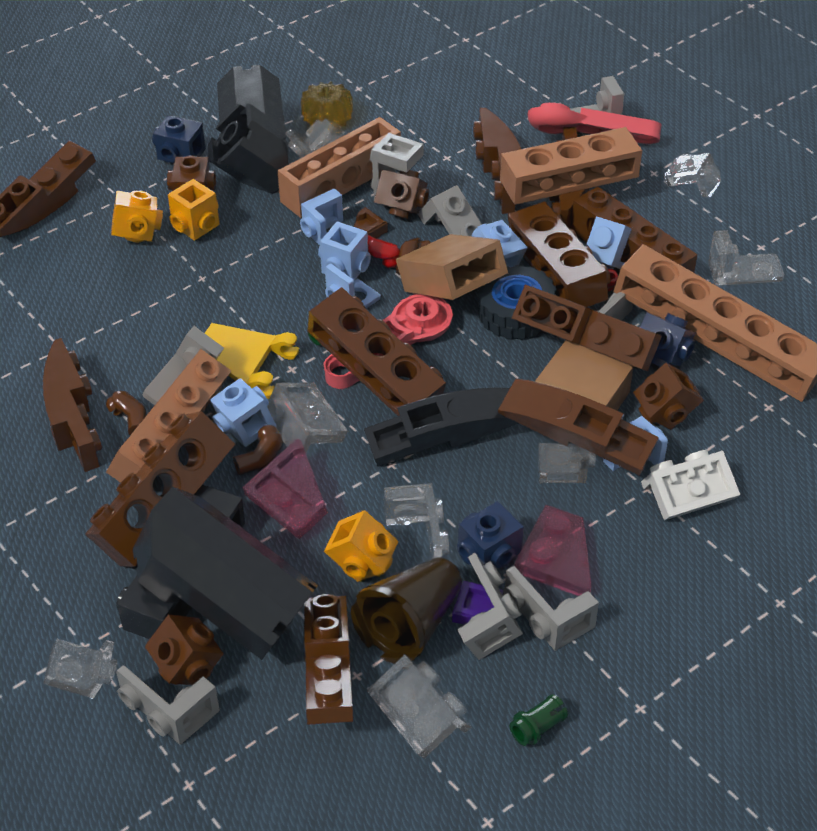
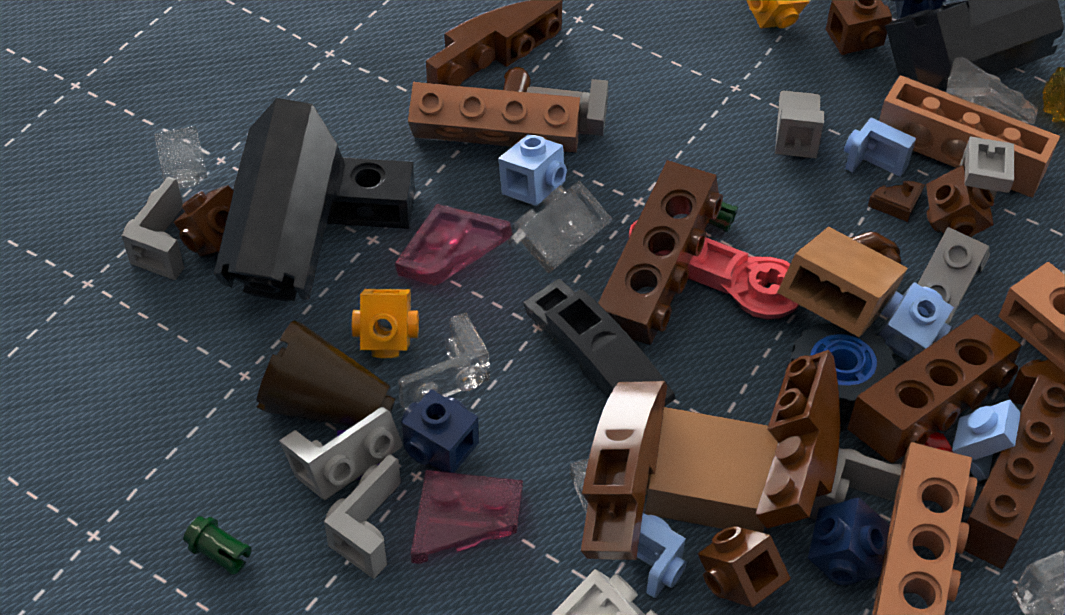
camera: 70 degrees right, 5 degrees up
(193, 209) = (810, 45): light orange brick -> none
(206, 449) = (453, 139): reddish brown brick -> none
(247, 351) = (633, 146): yellow flag -> none
(265, 452) = (501, 207): reddish brown arm -> none
(277, 254) = (799, 124): none -> light grey bracket
(327, 660) = (229, 341): reddish brown slope -> none
(336, 279) = (761, 209): light blue bracket -> none
(345, 249) = (819, 181): light blue brick -> none
(386, 251) = (856, 214): red arm -> none
(417, 705) = (209, 433): clear bracket -> none

